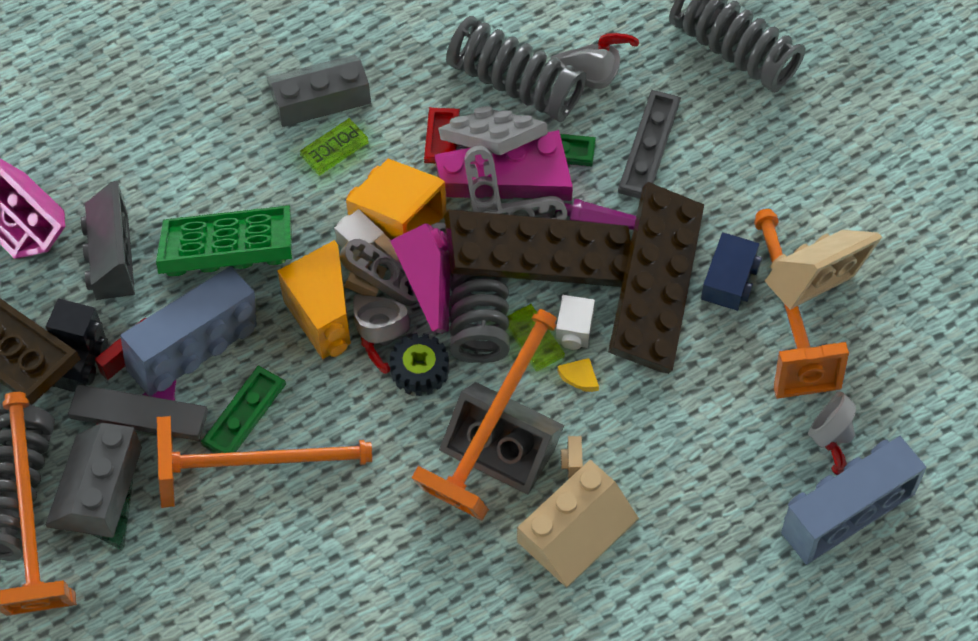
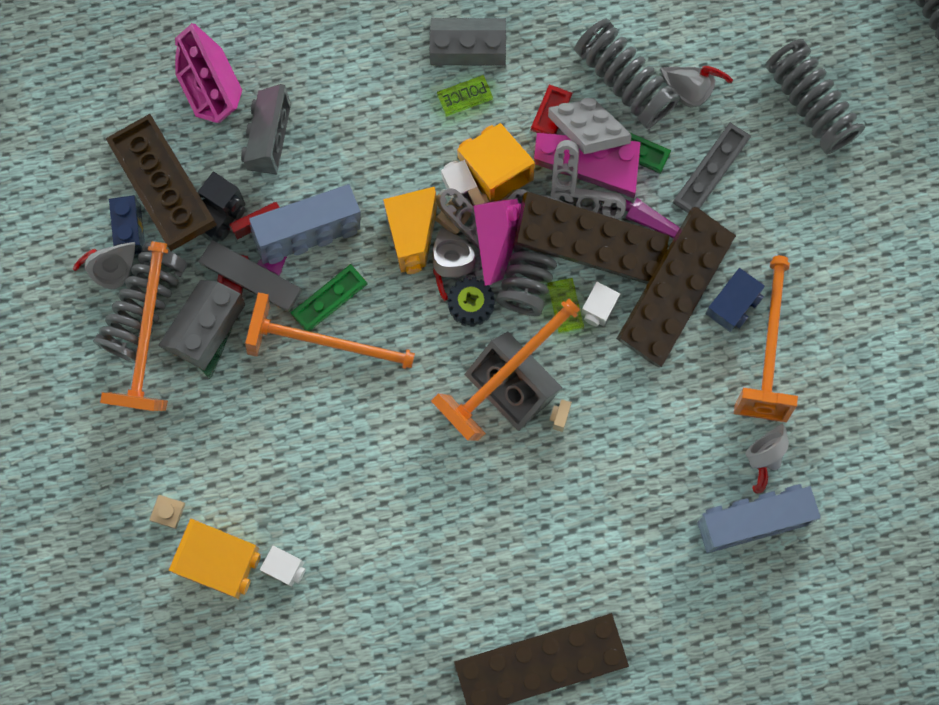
camera: 20 degrees right, 15 degrees up
(225, 240) = (353, 157): green plate -> none
(577, 523) = (546, 468): tan slope -> none
(579, 375) = (589, 348): yellow tile -> none
(820, 266) = (805, 320): tan slope -> none

